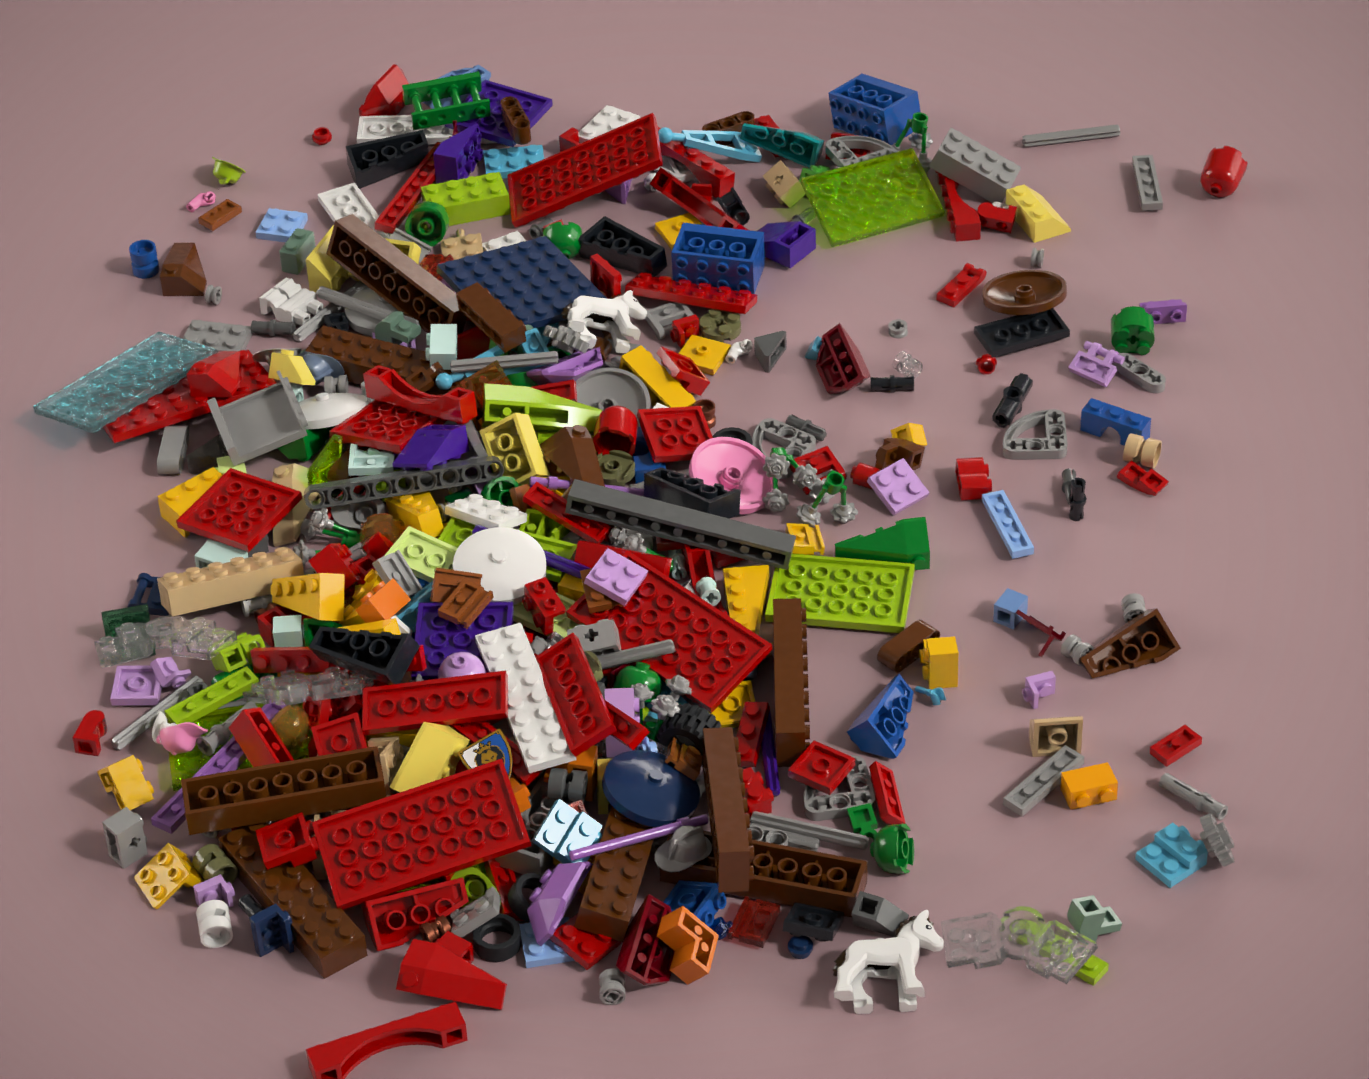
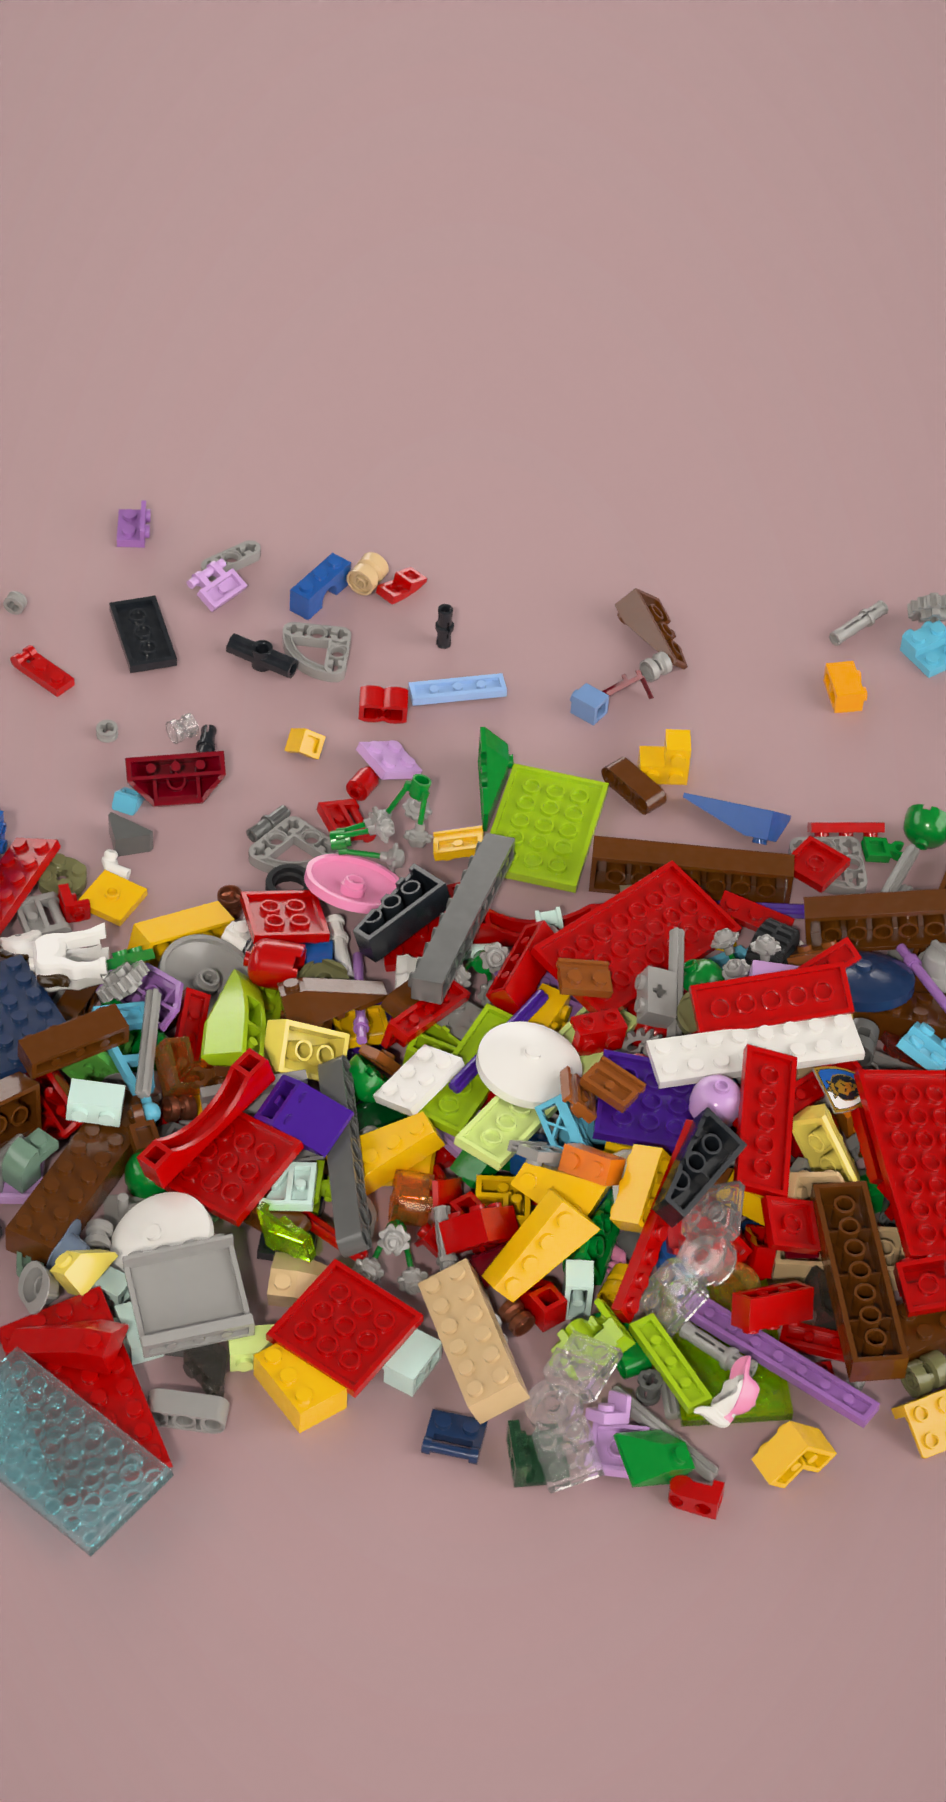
camera: 90 degrees left, 5 degrees up
(122, 696) = (653, 1457): none -> green slope
(125, 837) = (887, 1450): light grey brick -> none
(610, 353) = (130, 956): none -> green plate
(616, 577) = (581, 956): lavender plate -> none
(684, 370) = (162, 904): red plate -> none
(746, 594) = (546, 891): yellow wedge -> none
(896, 449) = (341, 750): reddish brown brick -> none
(936, 694) = (710, 779): medium azure hand -> none
(986, 368) = (191, 669): red plate -> none
(1024, 292) = (86, 616): reddish brown dish -> none
(1038, 686) = (706, 702): lavender bracket -> none
(1042, 781) = (832, 717): light grey plate -> none
(1052, 734) = (776, 694): tan slope -> none
(1067, 478) = (407, 636): dark grey axle -> none
(1132, 331) = (179, 546): green brick -> none
(1132, 606) = (608, 620): light grey wheel -> none
(1175, 745) = (792, 623): red plate -> none

